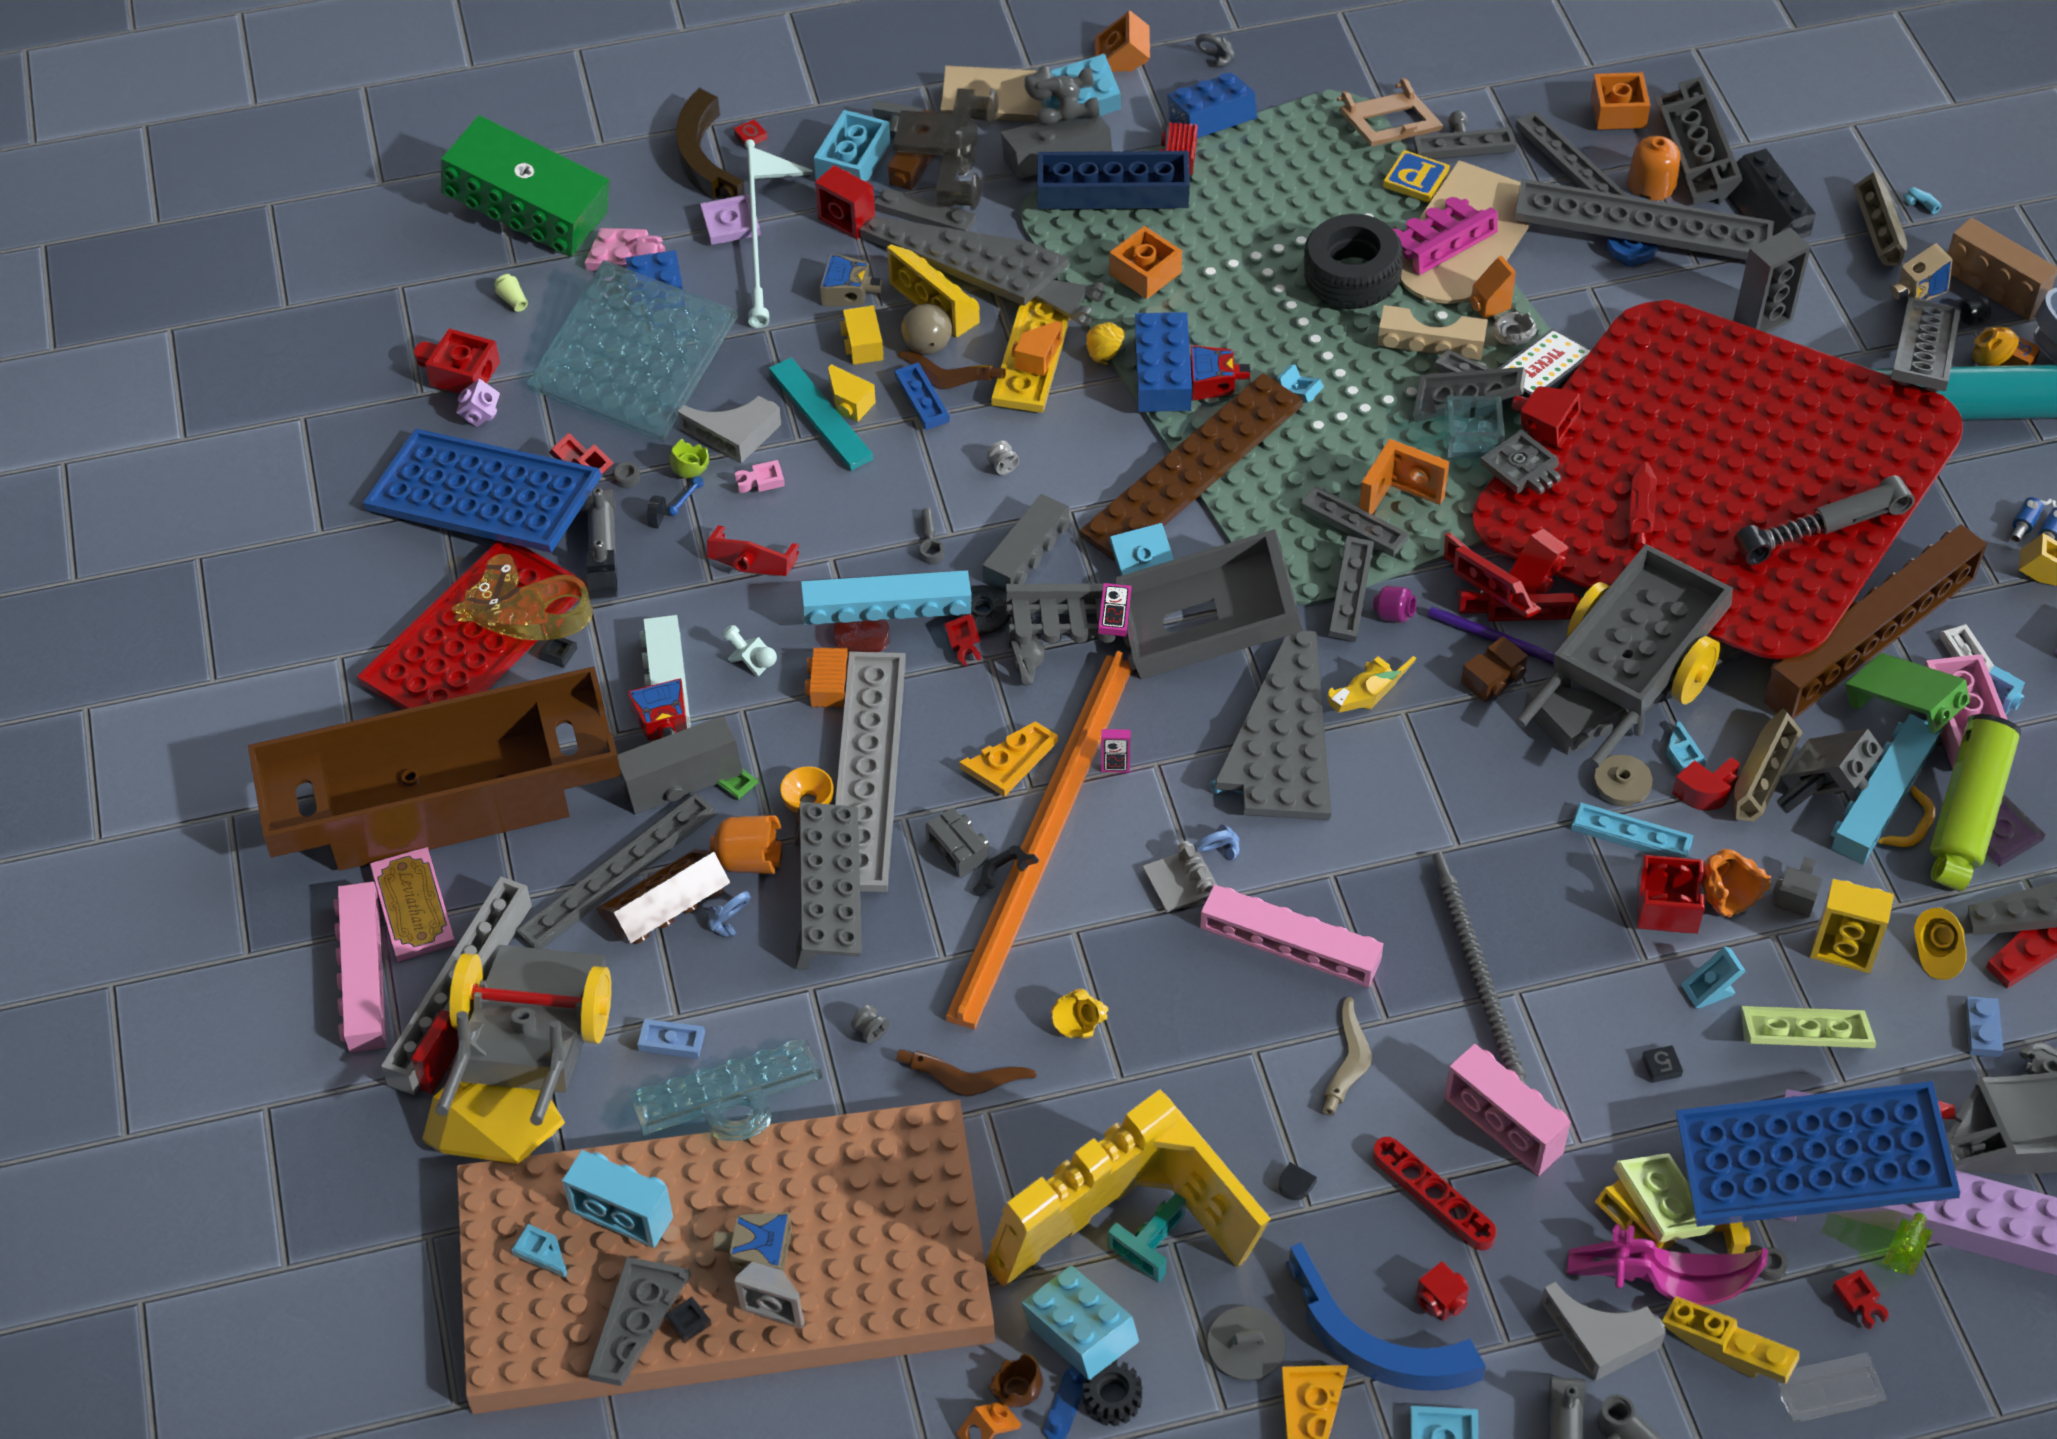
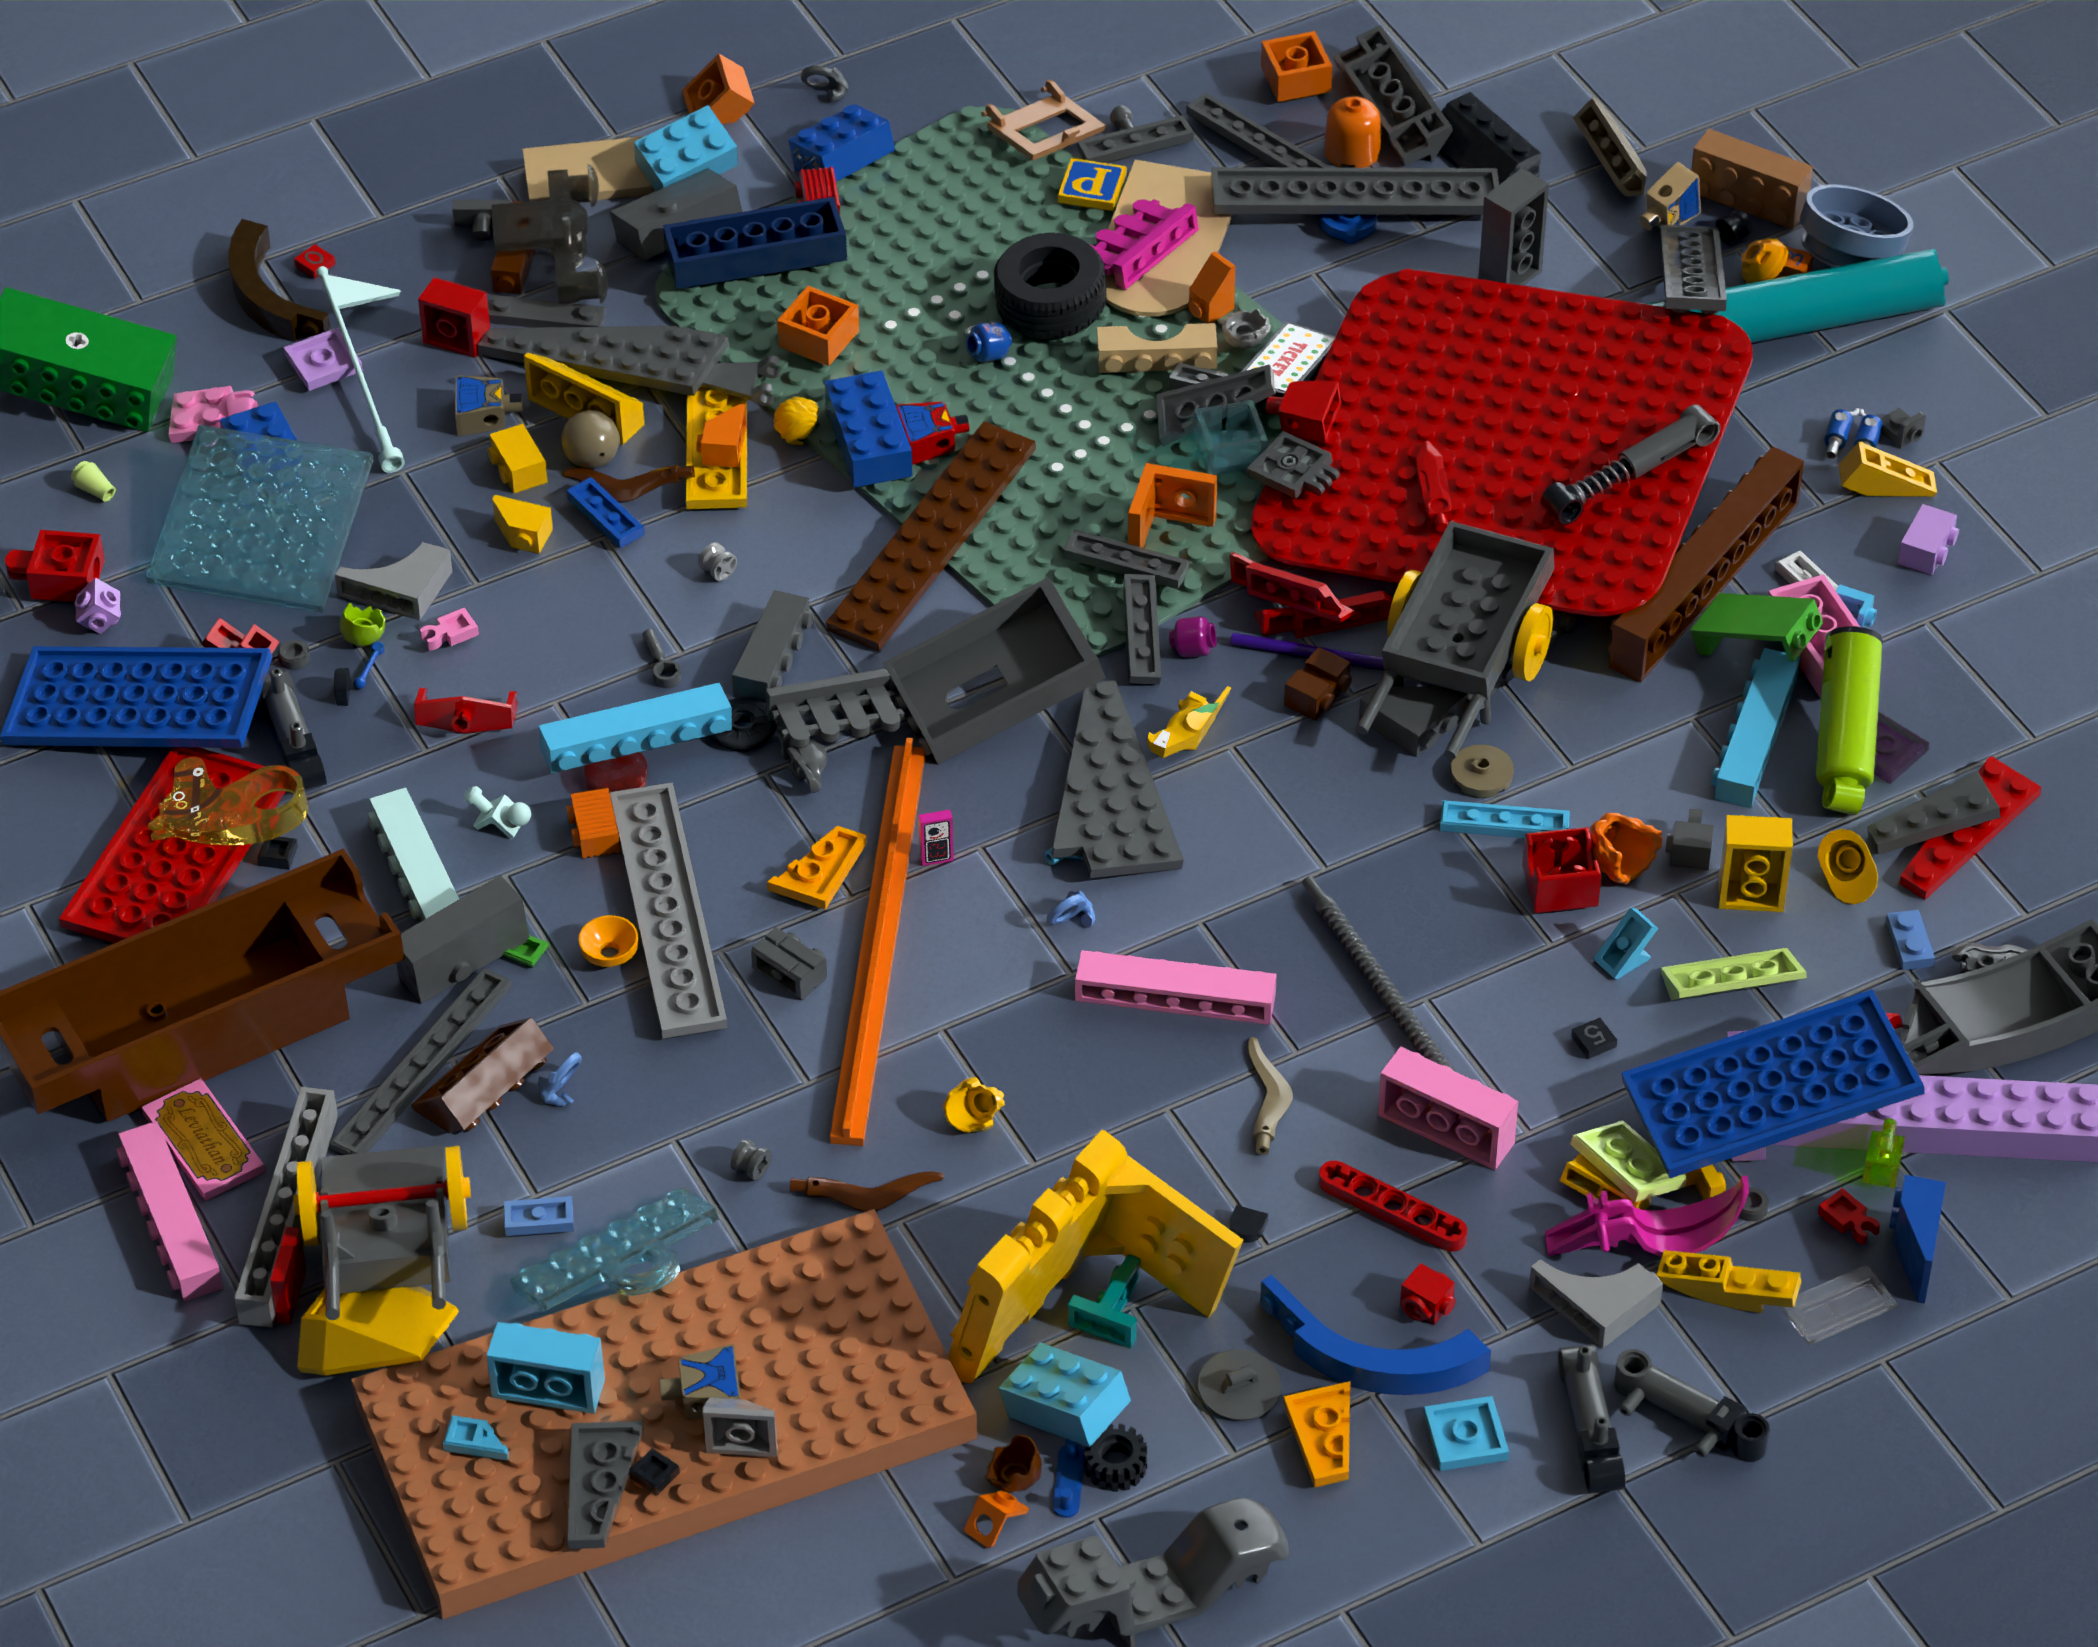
camera: 15 degrees left, 5 degrees down
(659, 709) = (421, 885): torso -> none
(748, 844) = (562, 1005): orange cylinder -> none
(821, 414) = (495, 551): teal tile -> none
(828, 881) = (662, 1025): dark grey bracket -> none
(853, 145) = (442, 250): medium azure brick -> none
(962, 636) = (731, 755): red plate -> none
(992, 864) = (833, 979): black helmet -> none
(1066, 89) = (678, 152): dark grey animal -> none
(1114, 609) = (893, 694): tile -> none
(1141, 549) = (900, 628): medium azure plate -> none
(1180, 878) = (1041, 953): light grey hinge -> none
(1288, 301) = (988, 341): none -> blue head
(1304, 387) = (1032, 428): medium azure bracket -> none
(1539, 562) = (1339, 562): red brick -> none
(1682, 749) = (1538, 730): medium azure tile -> none
(1705, 789) = (1570, 762): red brick -> none
(1765, 766) = (1627, 728): dark tan brick -> none
(1829, 766) = (1694, 713): dark grey piece -> none
(1921, 829) = (1802, 760): light orange animal -> none
(1924, 198) = (1652, 118): medium azure arm -> none
(1924, 1324) = (1917, 1228): none -> blue slope

